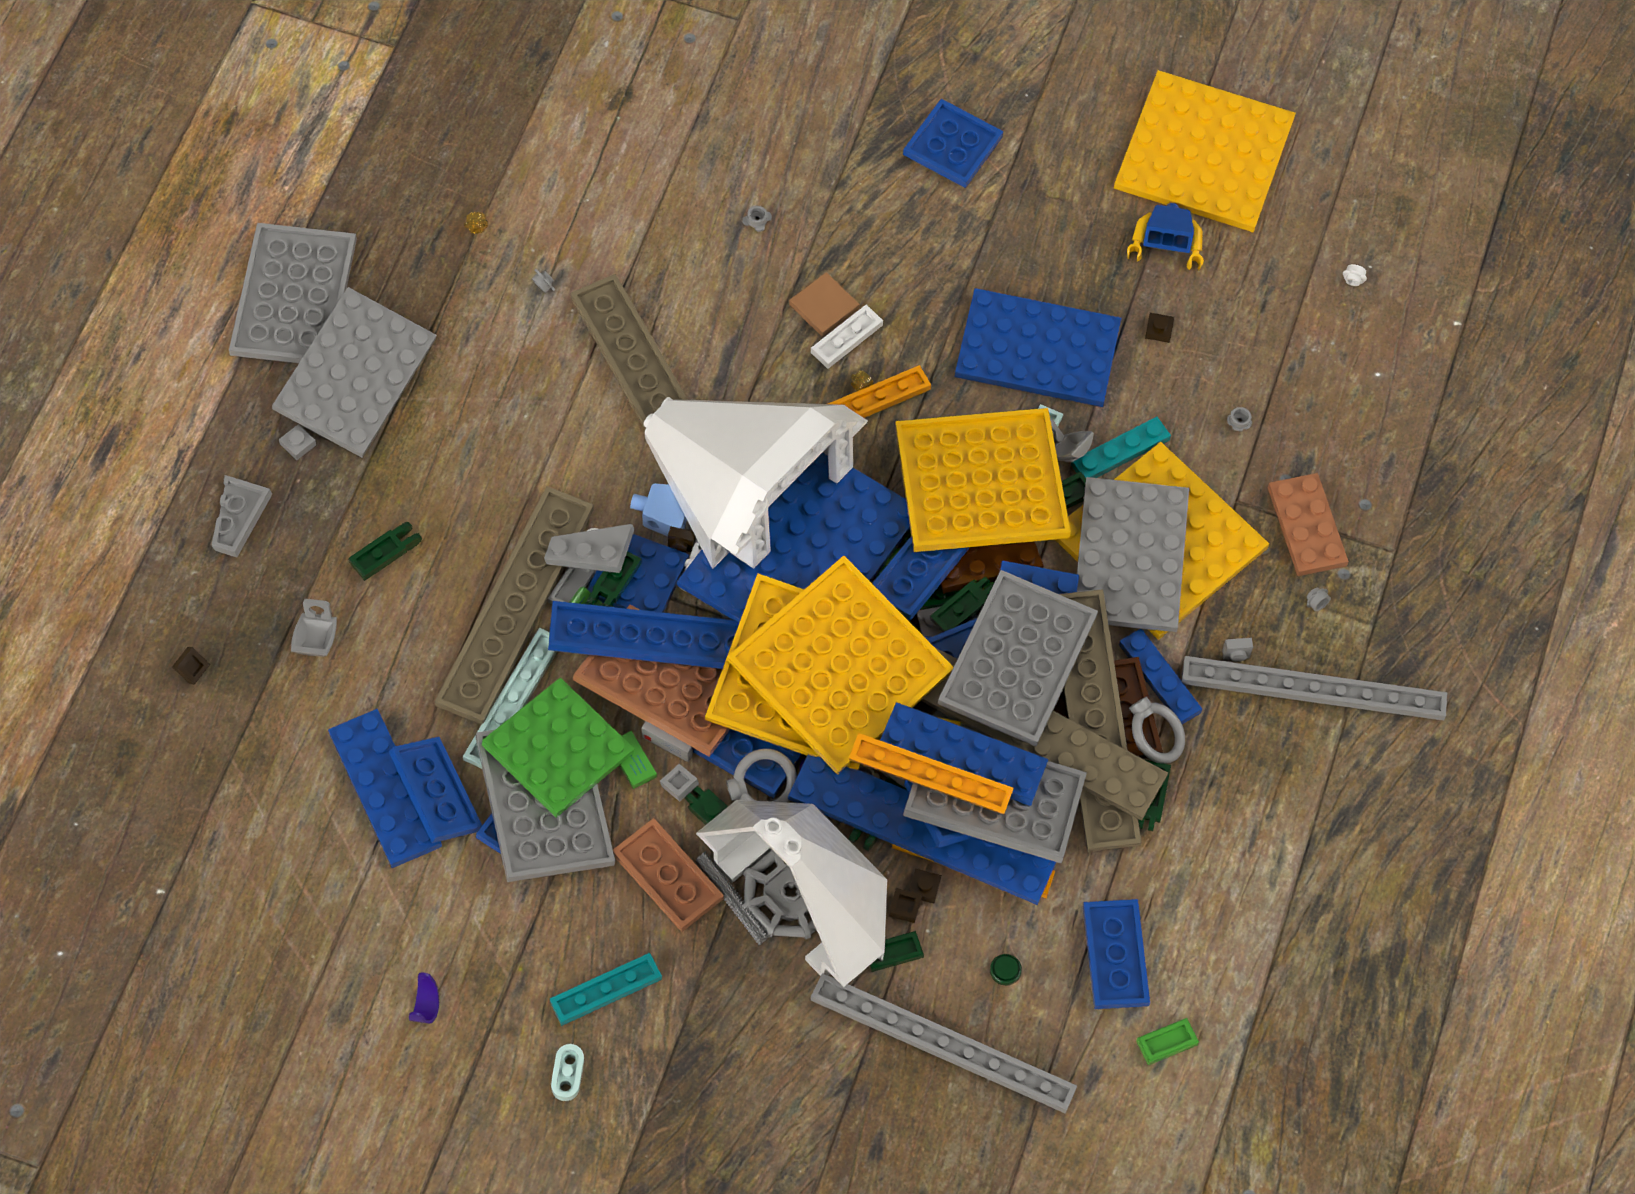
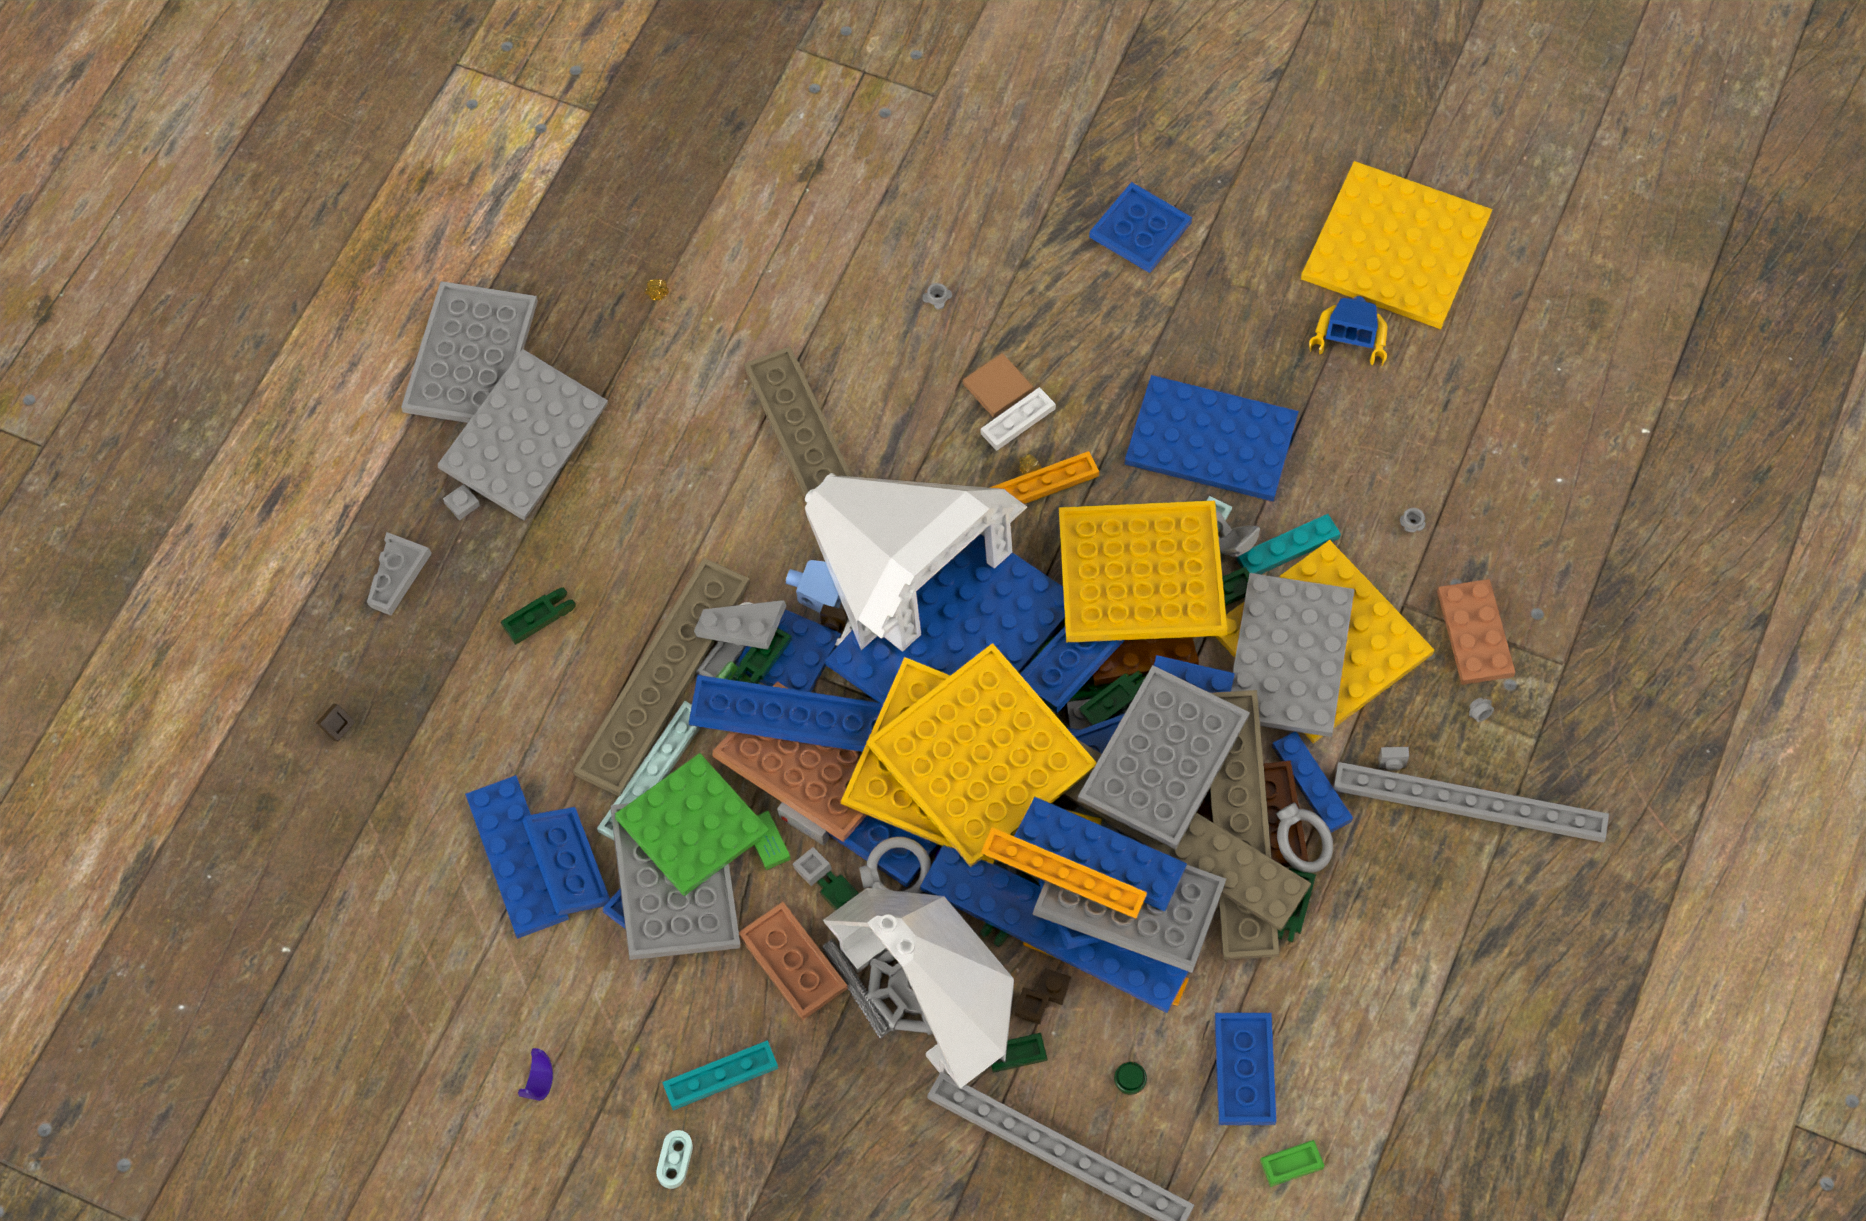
camera: 10 degrees right, 0 degrees up
(313, 631) = (459, 693): light grey piece -> none
(543, 281) = (718, 350): light grey plate -> none
(1159, 327) = (1337, 422): dark brown plate -> none
(1354, 275) = (1542, 377): white plate -> none

